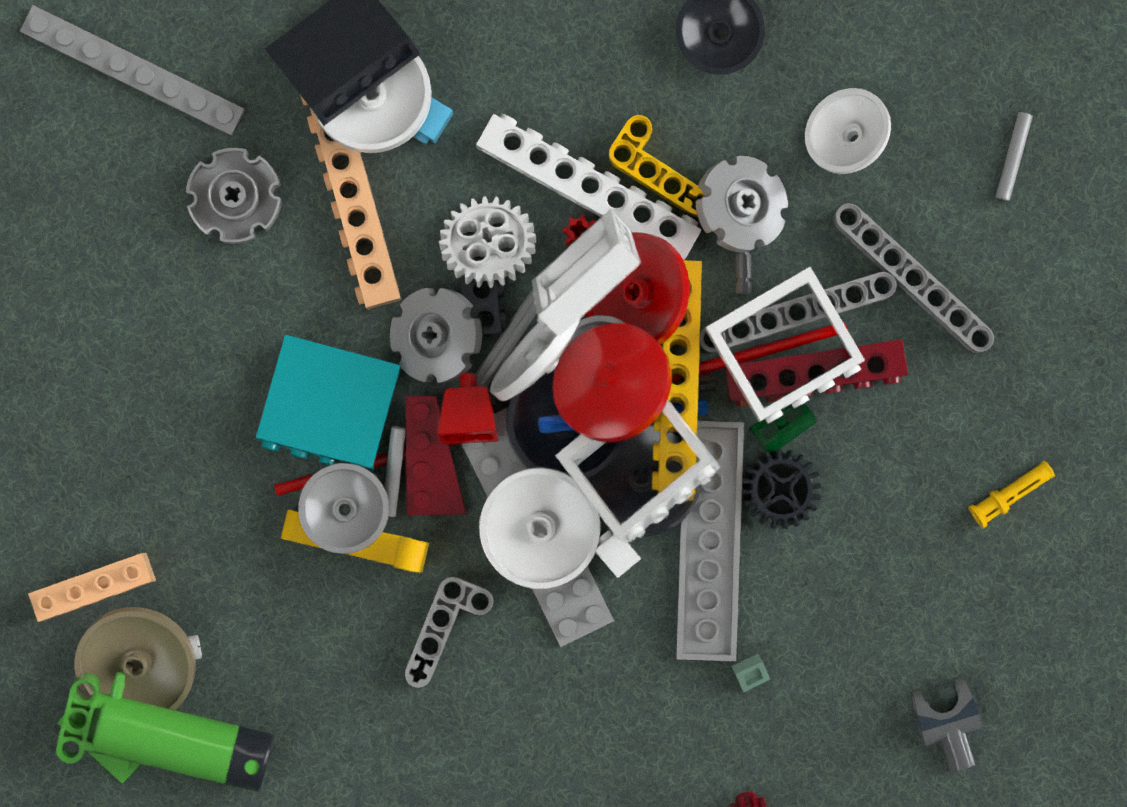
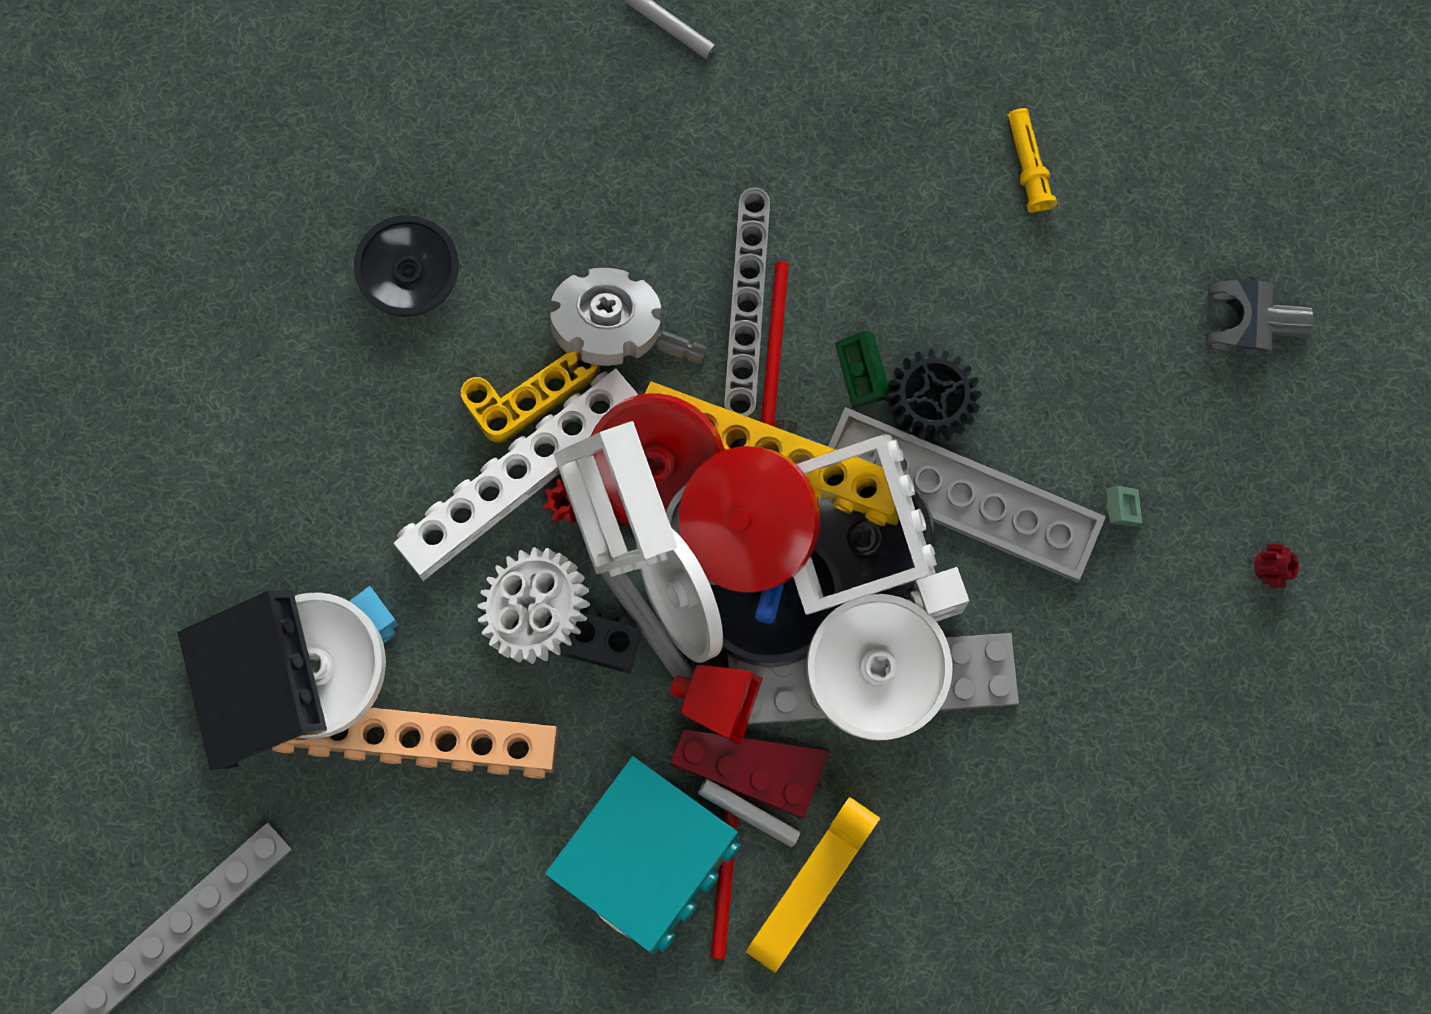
camera: 70 degrees left, 10 degrees down
(256, 201) = (335, 859): light grey piece -> none
(337, 487) = (767, 854): light grey dish -> none
(442, 633) = (954, 828): light grey beam -> none
(456, 335) = (641, 705): light grey piece -> none
(800, 395) = (789, 387): white window -> none
(837, 121) = (554, 174): white dish -> none
(889, 353) = (832, 226): dark red brick -> none
(927, 283) = (766, 158): light grey beam -> none

